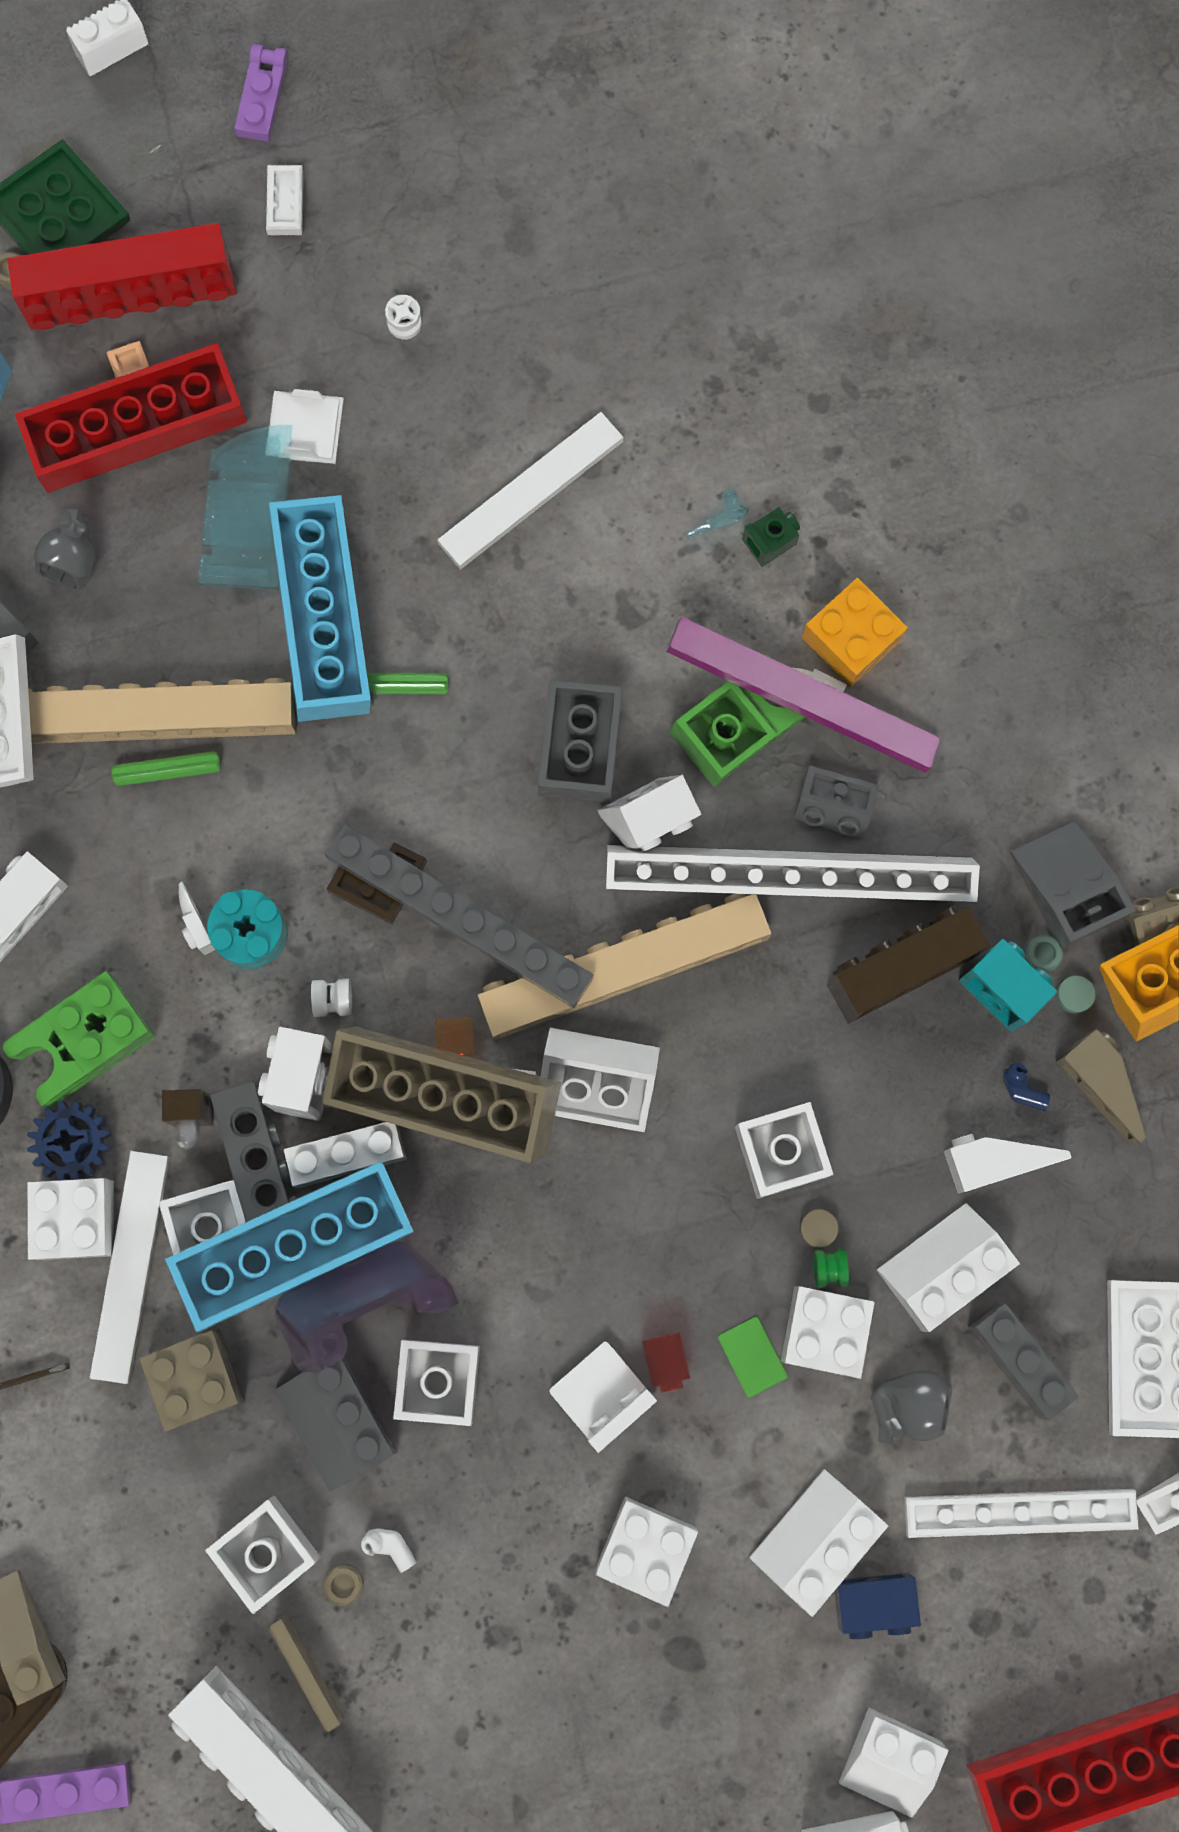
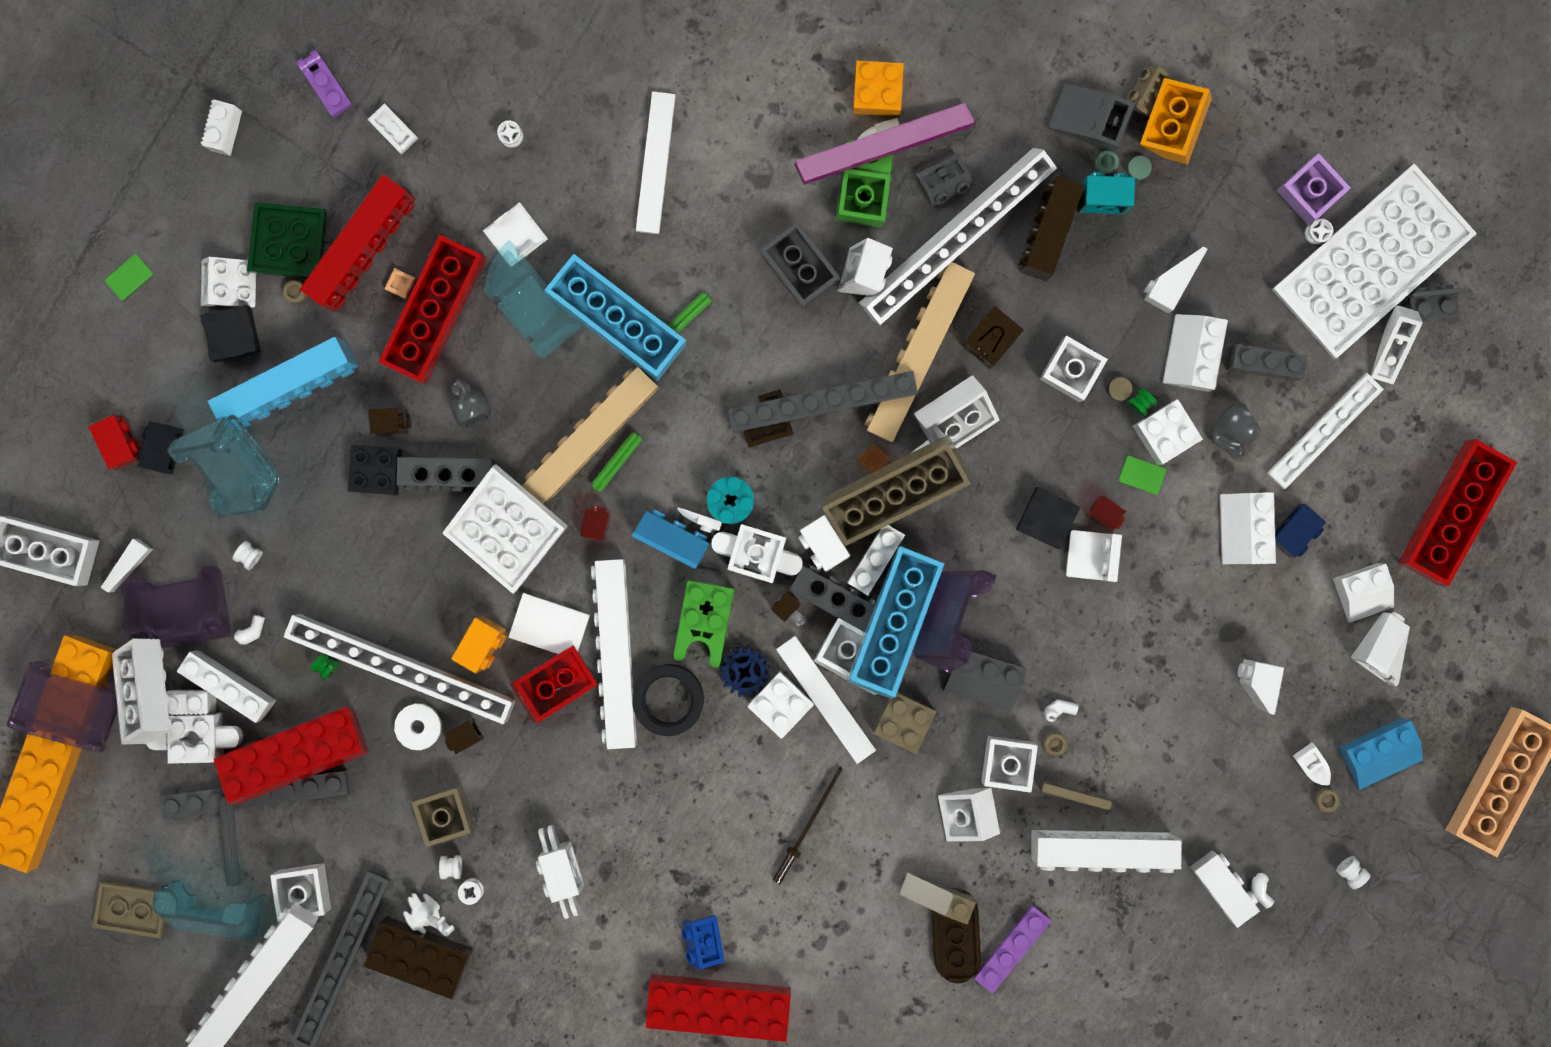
camera: 35 degrees left, 10 degrees up
(73, 813) = (596, 523): none -> clear red brick
(137, 909) = (671, 538): none -> dark azure slope
(158, 1572) = (969, 815): none -> white slope
(216, 1017) = (756, 553): none -> white brick
(339, 995) = (803, 490): white wheel -> none
(436, 1382) = (1014, 619): white brick -> none
(591, 1299) = (1048, 518): none -> black brick
(646, 1551) = (1175, 604): white brick -> none
(660, 1752) = (1261, 683): none -> white slope
(723, 1025) = (992, 337): none -> dark brown piece
(727, 516) = (763, 83): clear light blue bar -> none
(769, 546) = (791, 84): dark green brick -> none
(1020, 1090) = (1155, 238): dark blue arm -> none
(1103, 1078) = (1187, 196): dark tan slope -> none

